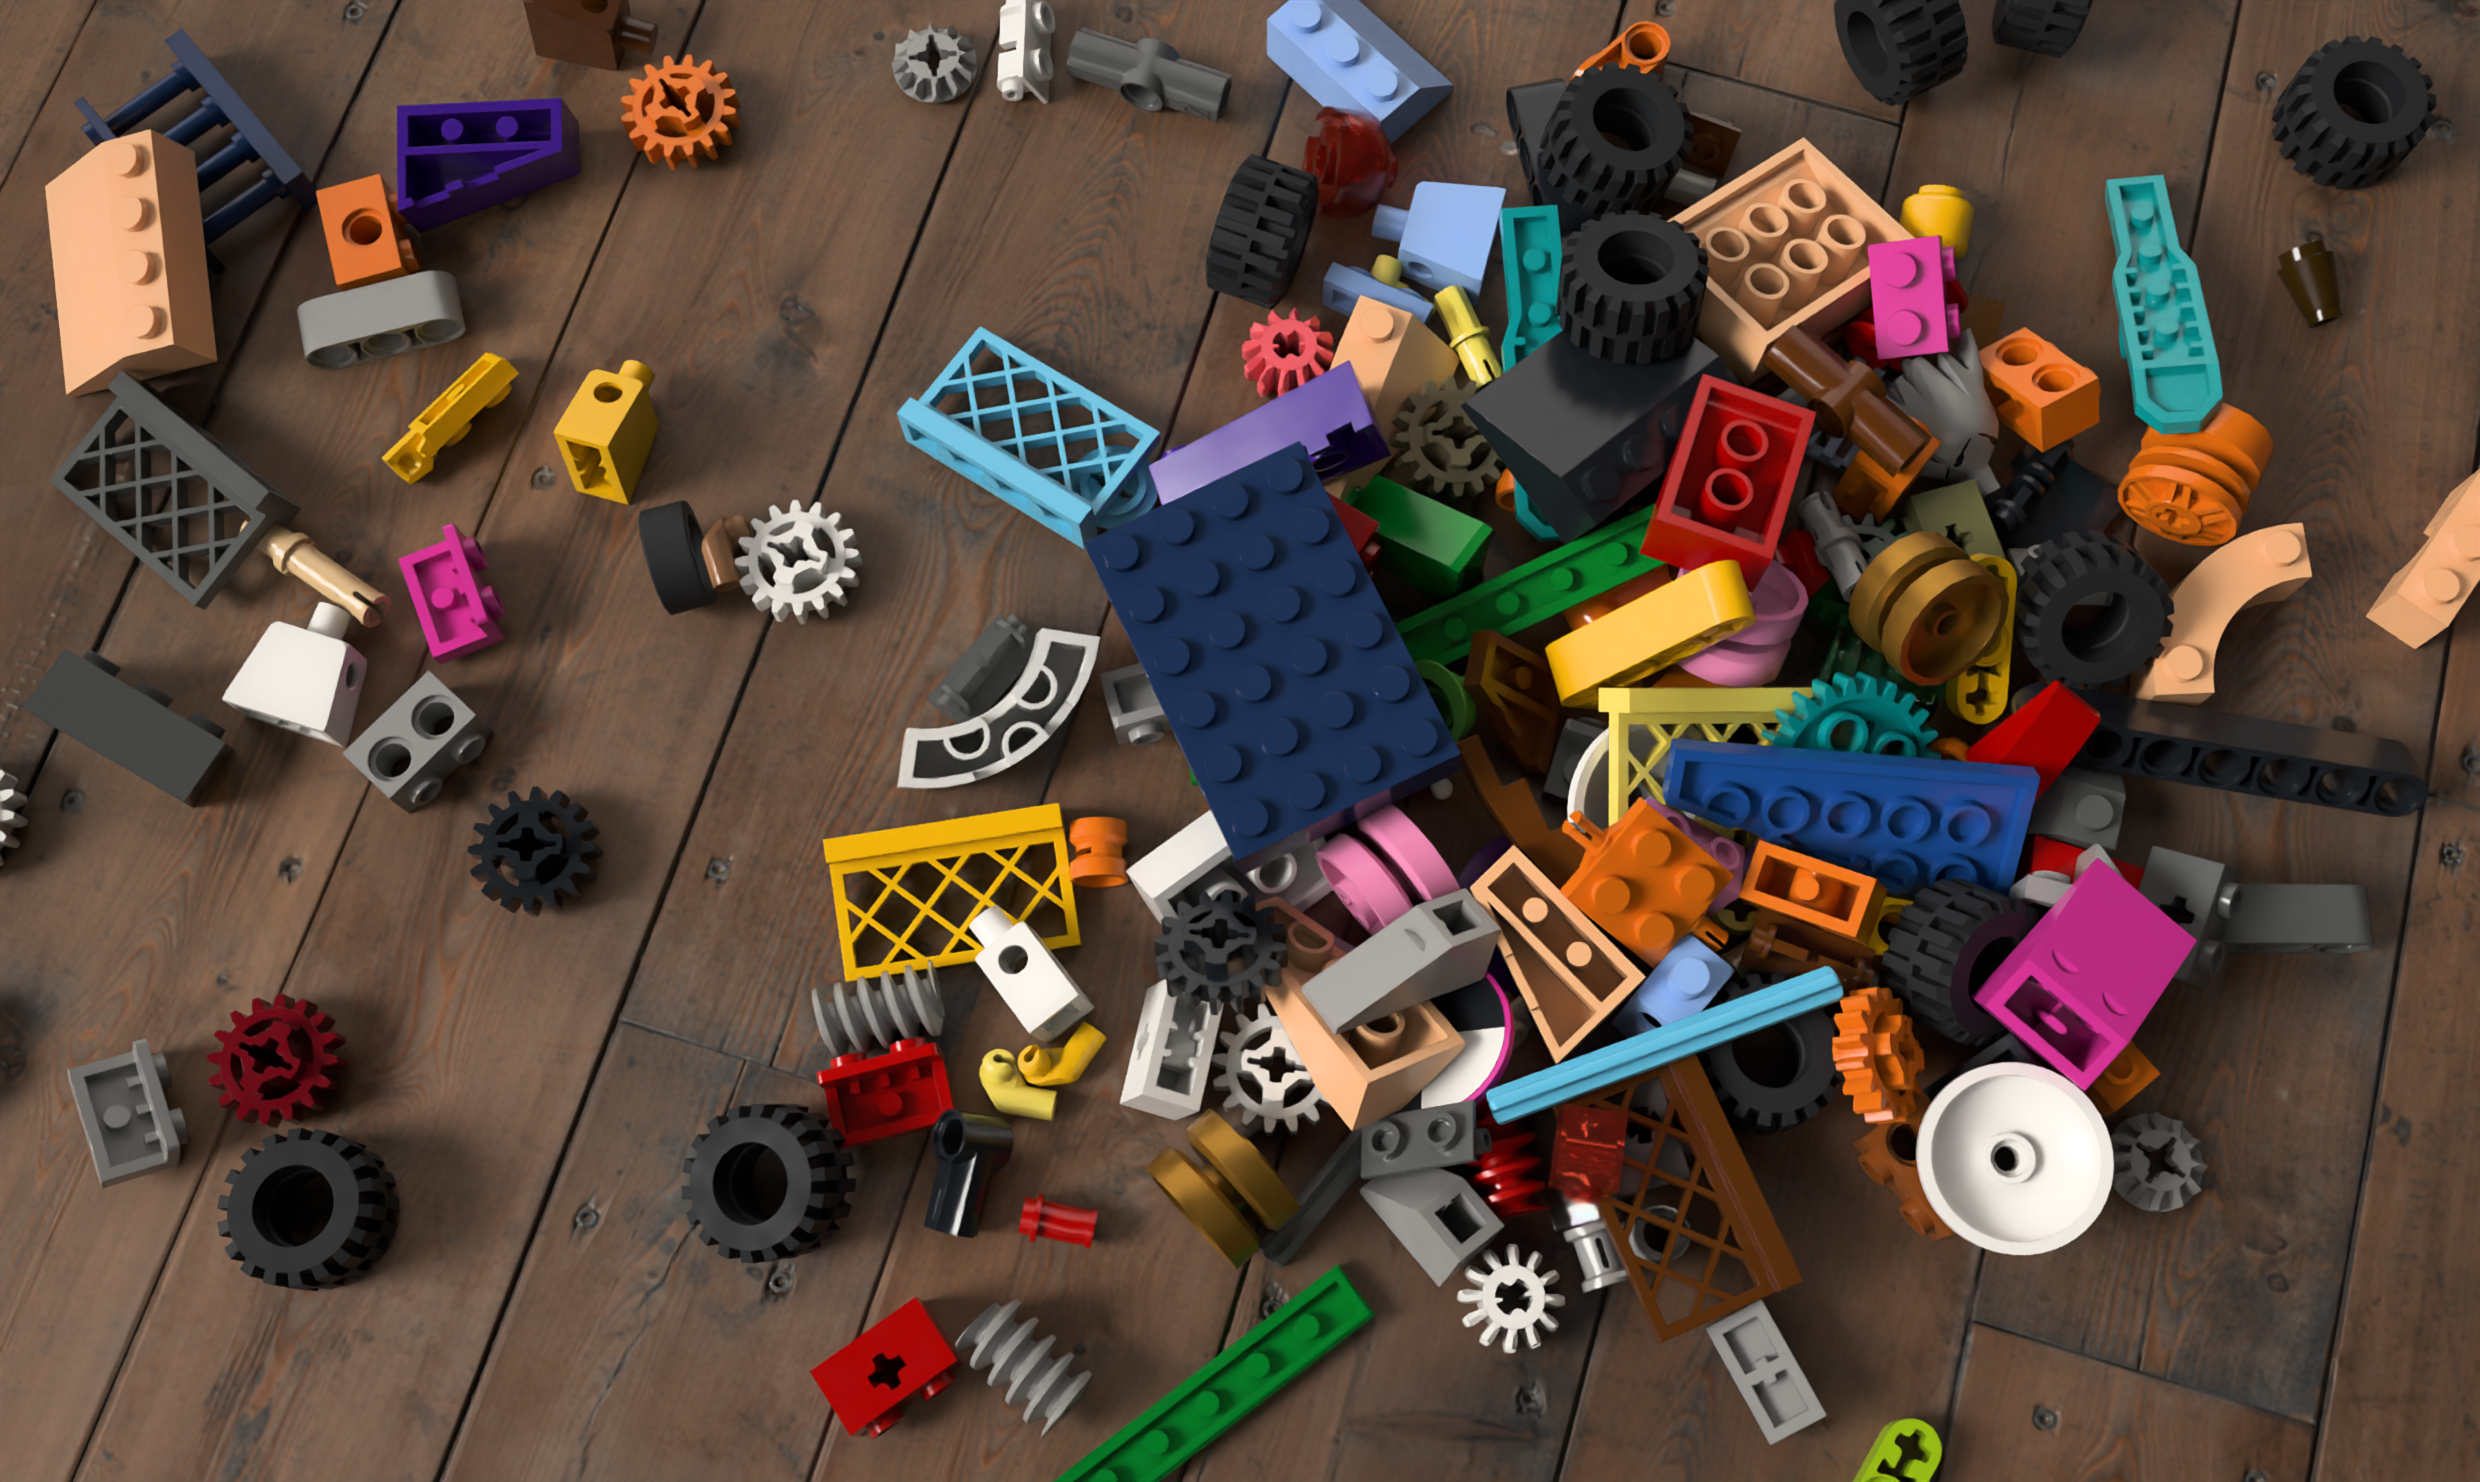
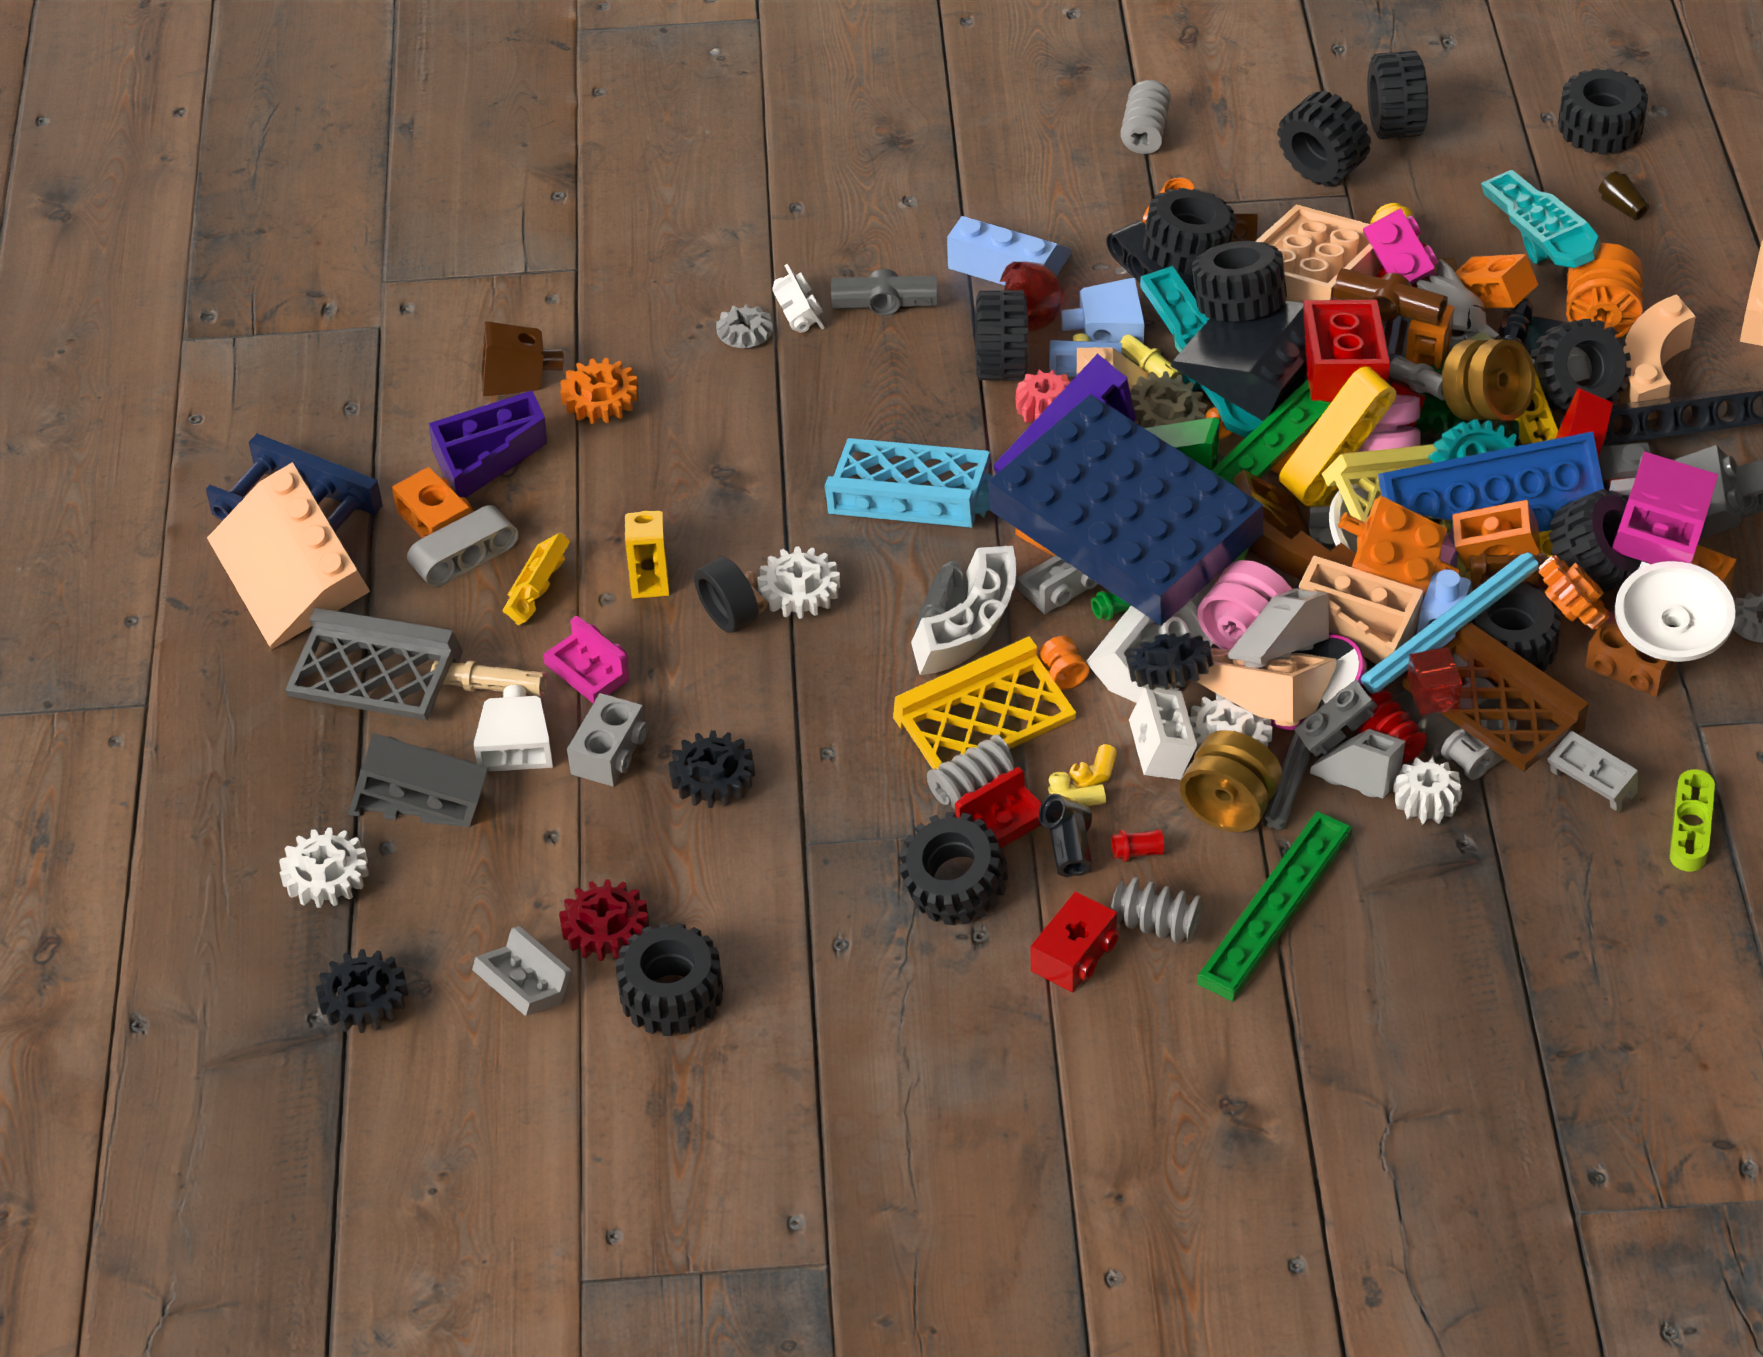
camera: 20 degrees left, 25 degrees down
(1043, 992) = (1060, 722): white torso -> none

